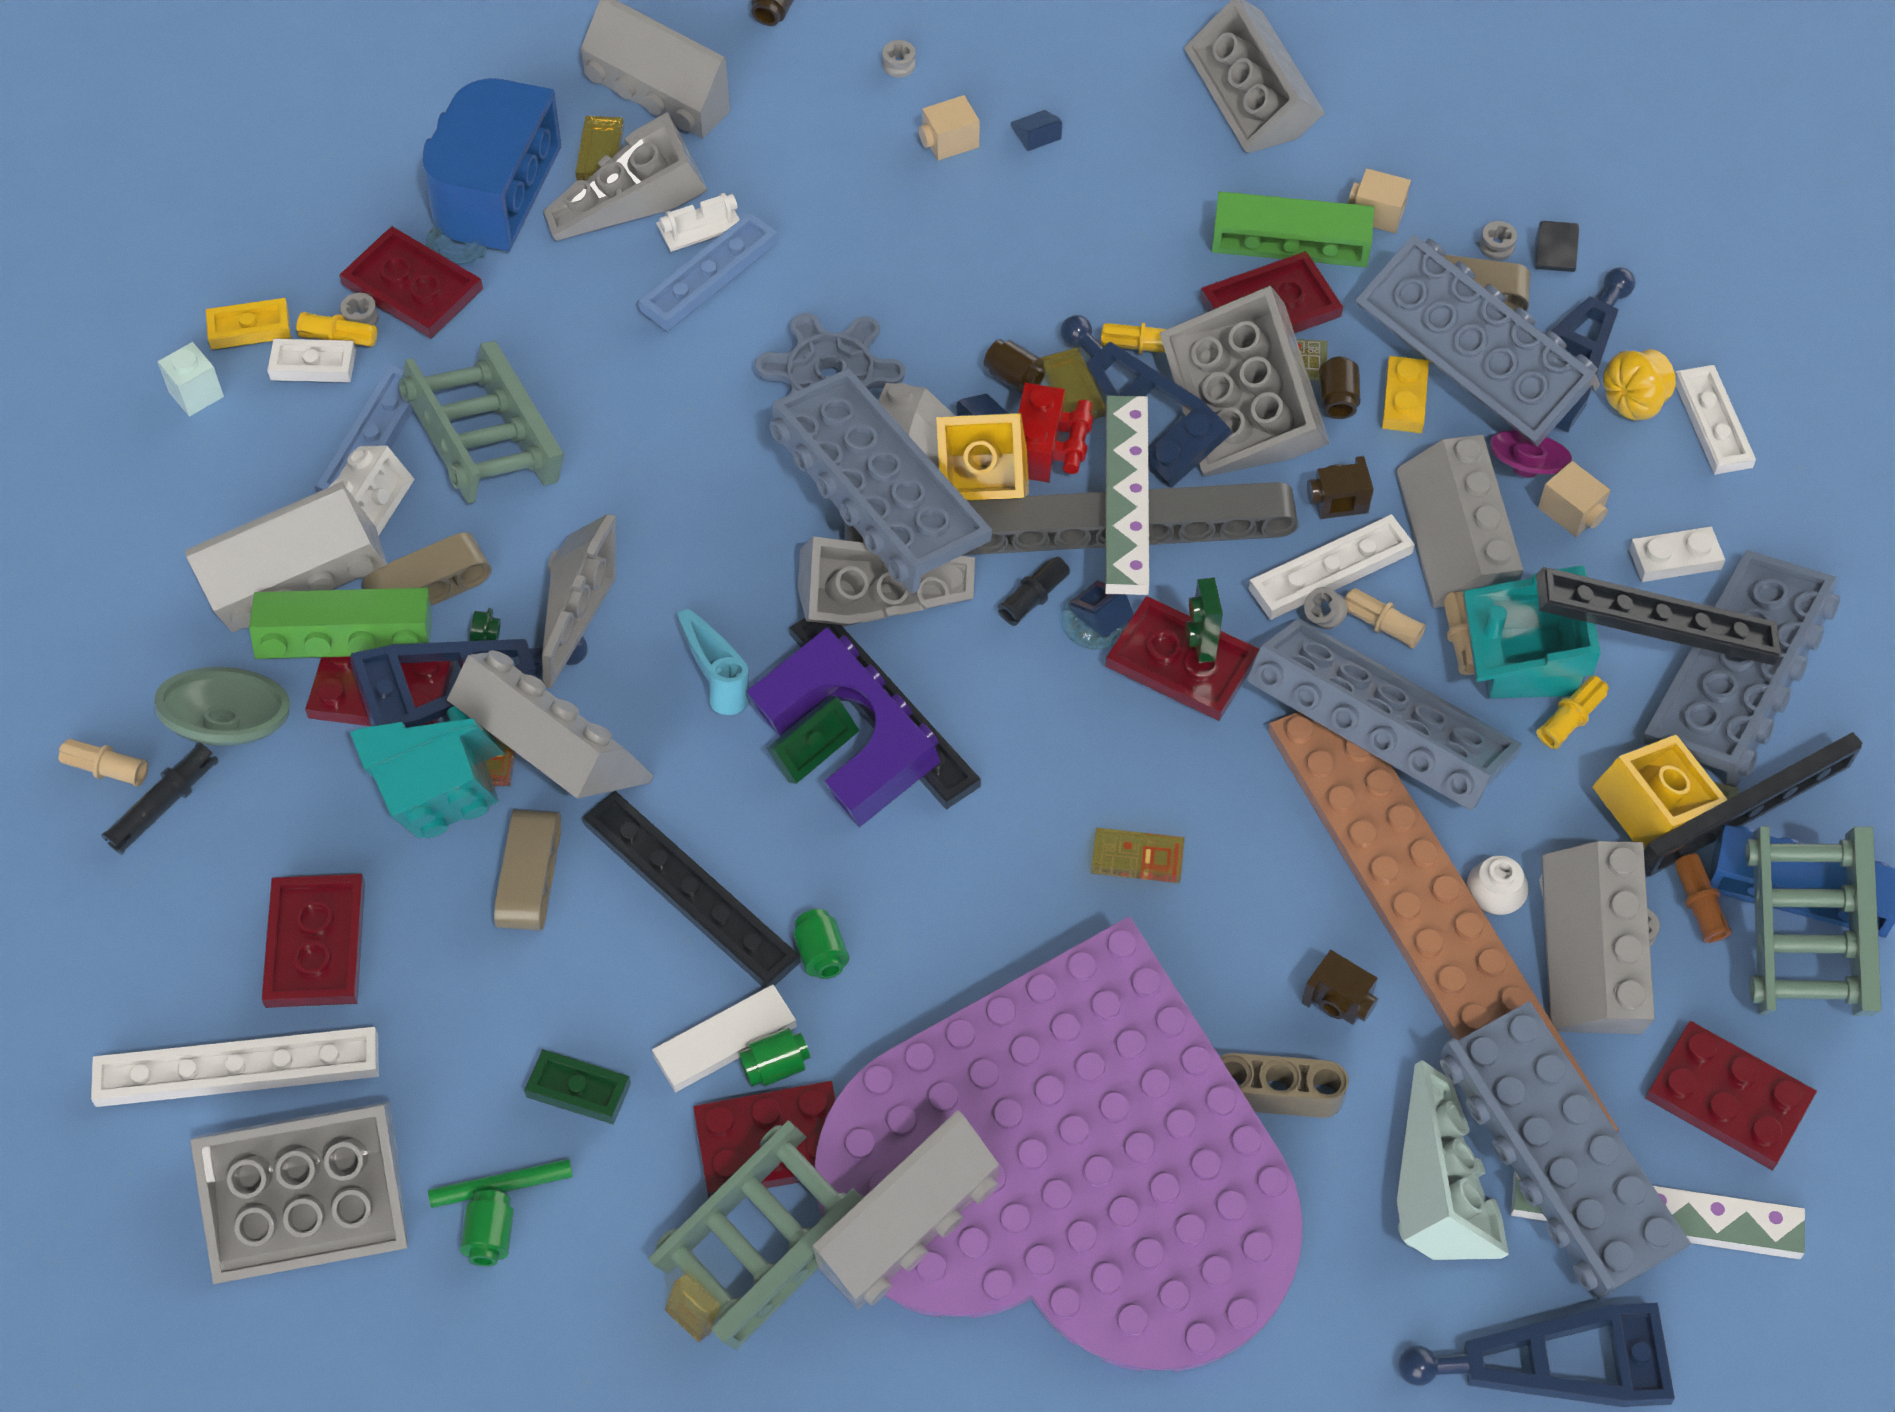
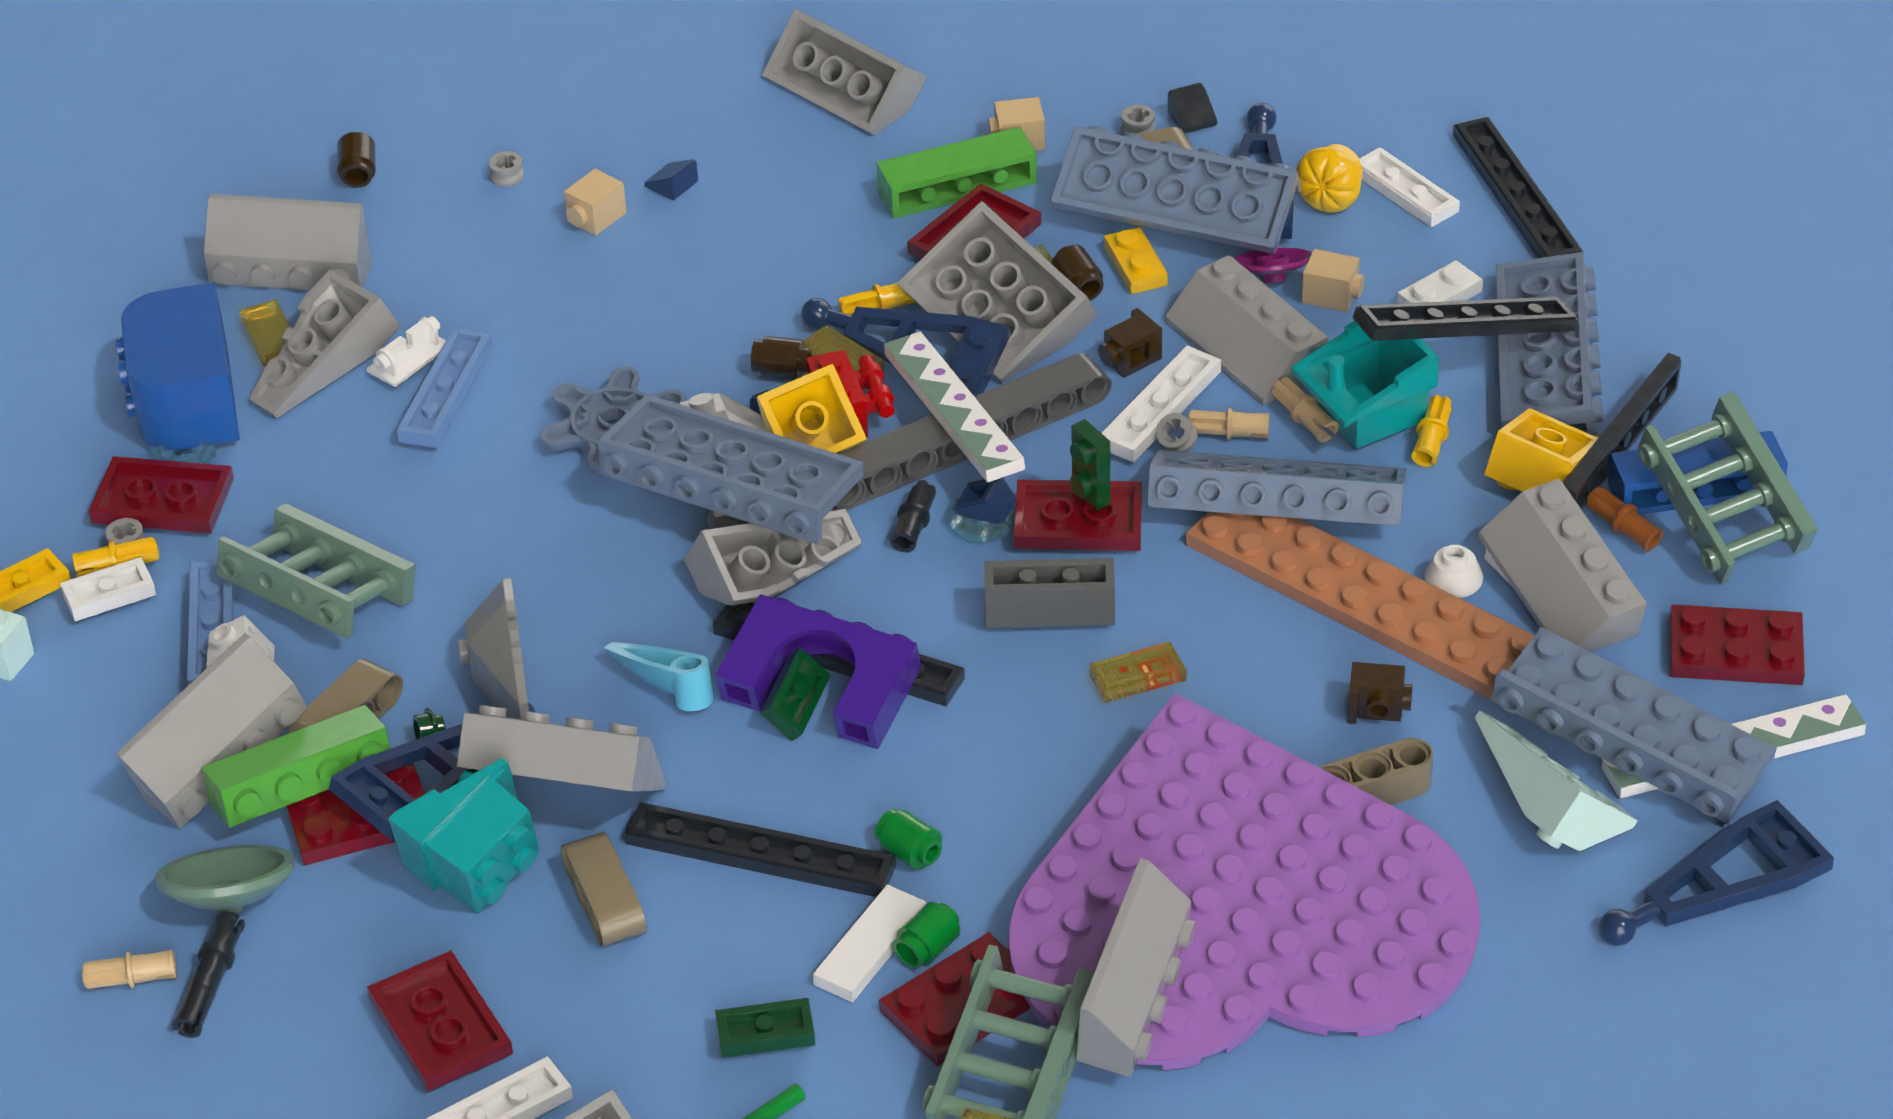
camera: 25 degrees left, 15 degrees down
(1098, 737) = (1049, 593): none -> dark grey brick
(1821, 472) = (1514, 188): none -> black tile

